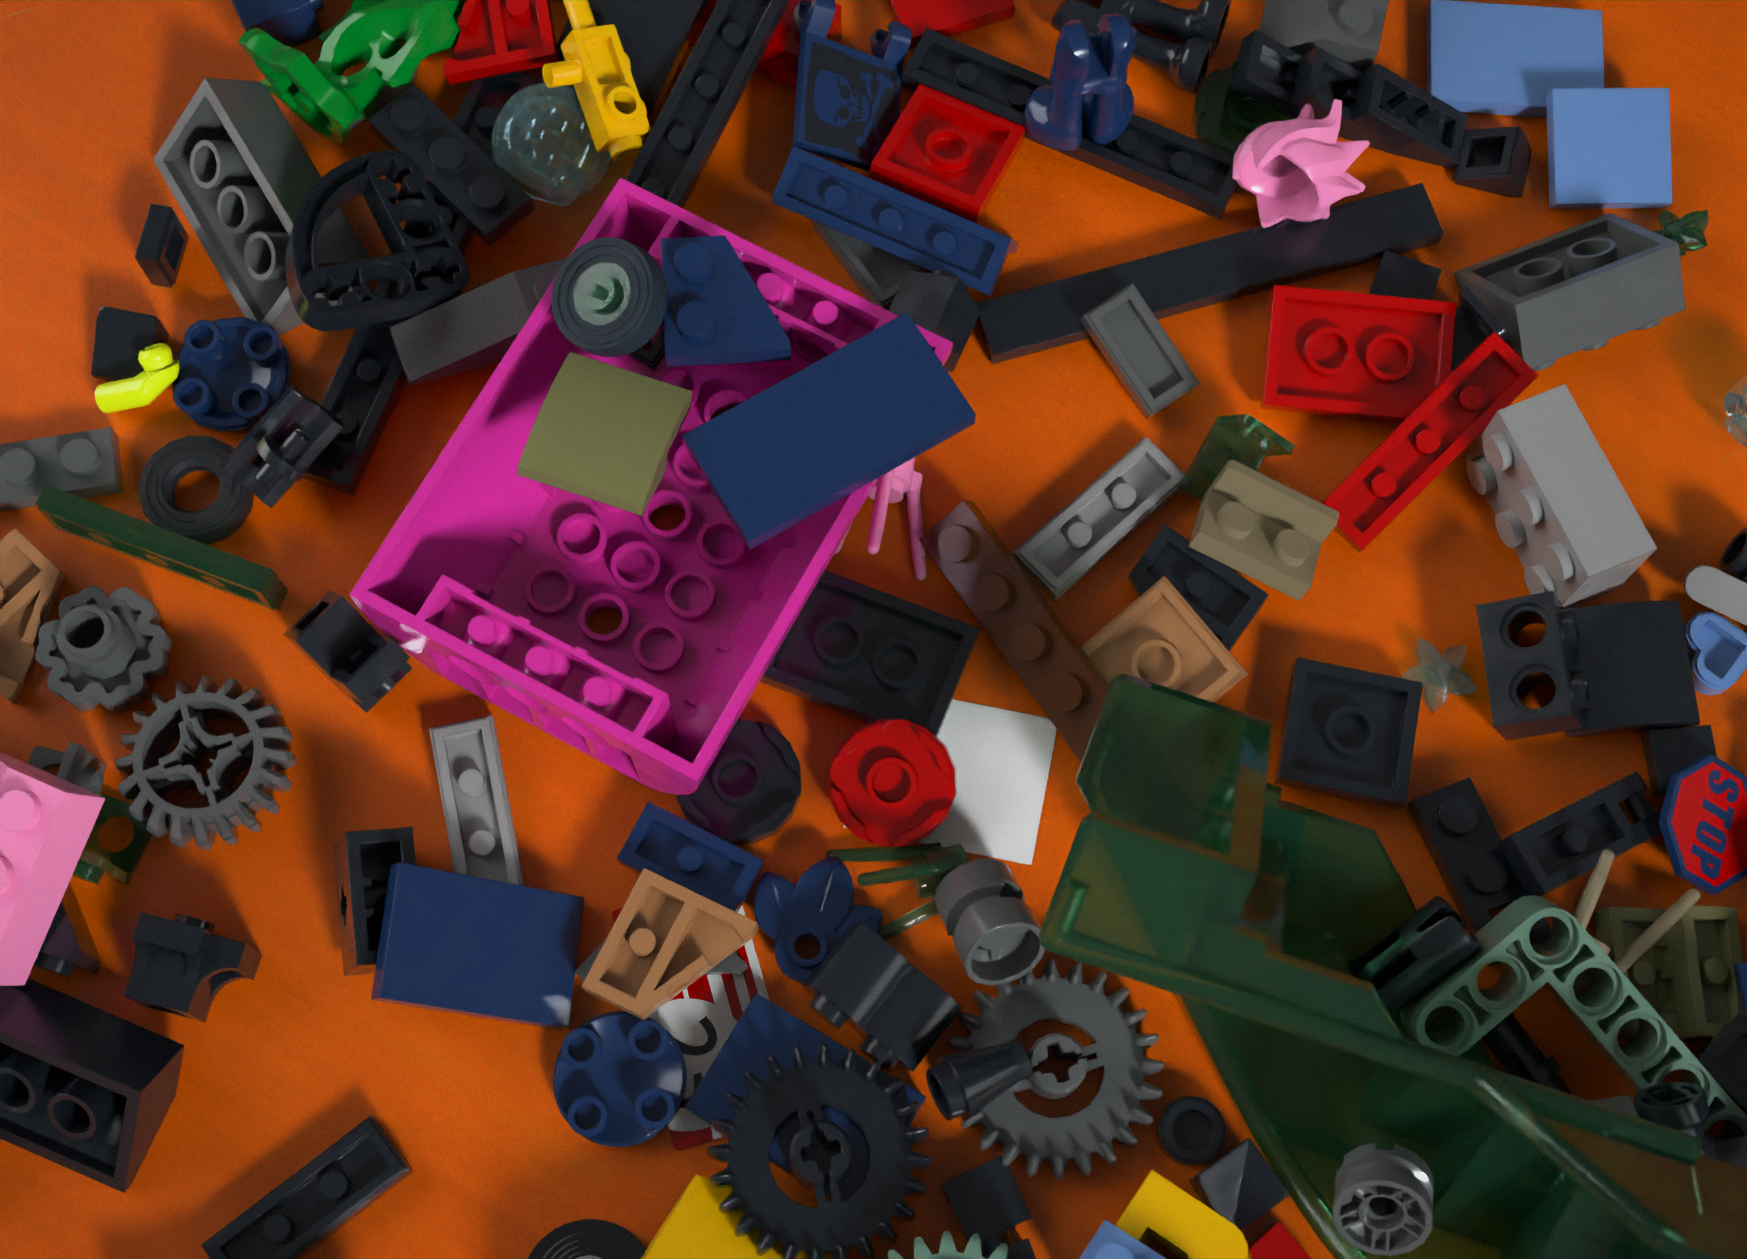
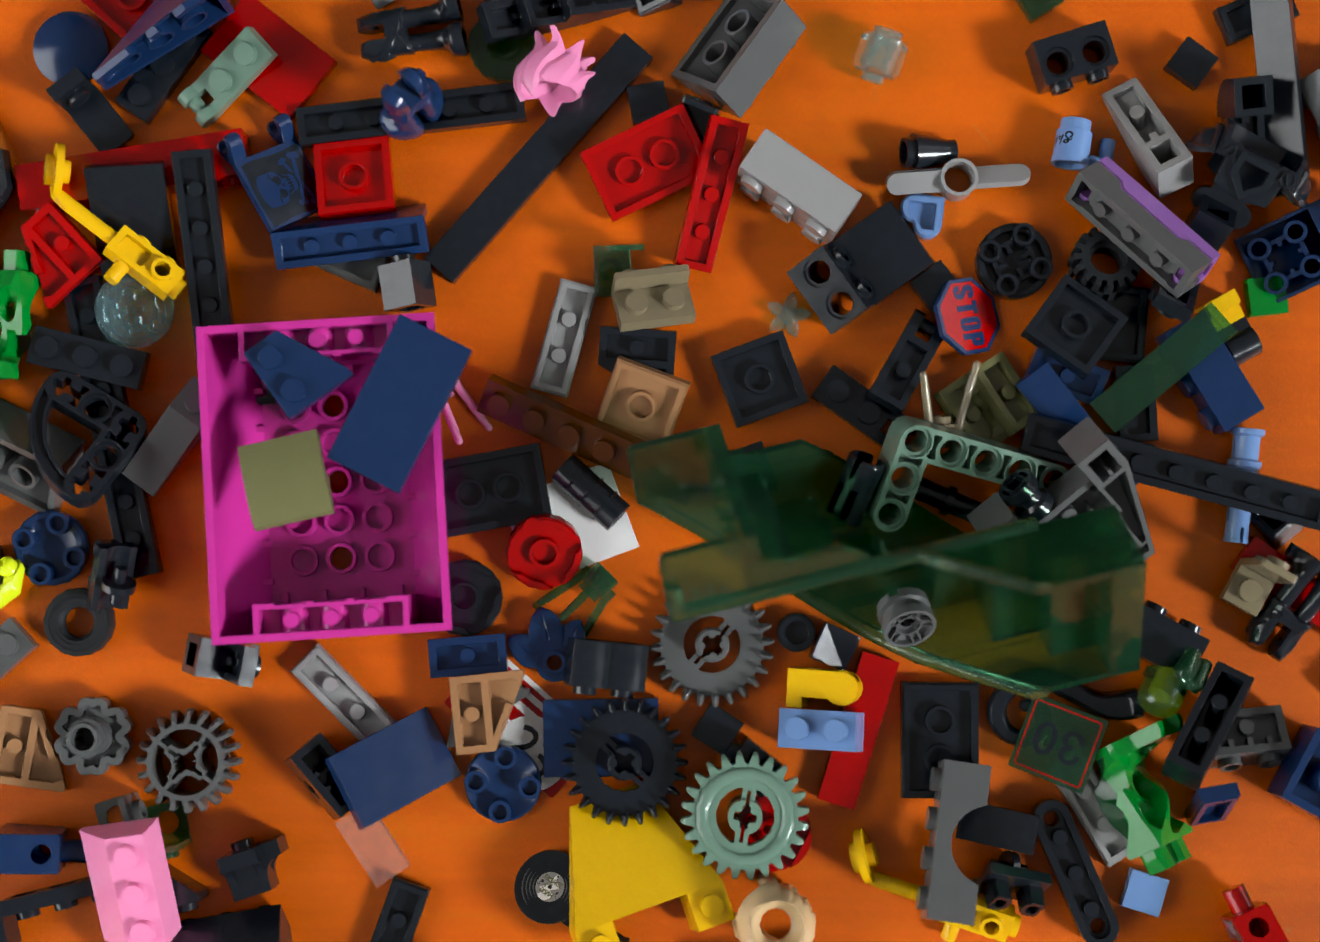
camera: 30 degrees left, 15 degrees up
(162, 548) = (84, 665): clear green tile -> none
(372, 1055) = (374, 849): none -> clear tile
(609, 297) = (239, 405): black wheel -> none
(976, 1077) = (677, 678): black cone -> none
(989, 921) = (635, 595): dark grey wheel -> none
(1010, 741) = (590, 492): none -> black axle
(1139, 351) = (529, 231): dark grey tile -> none

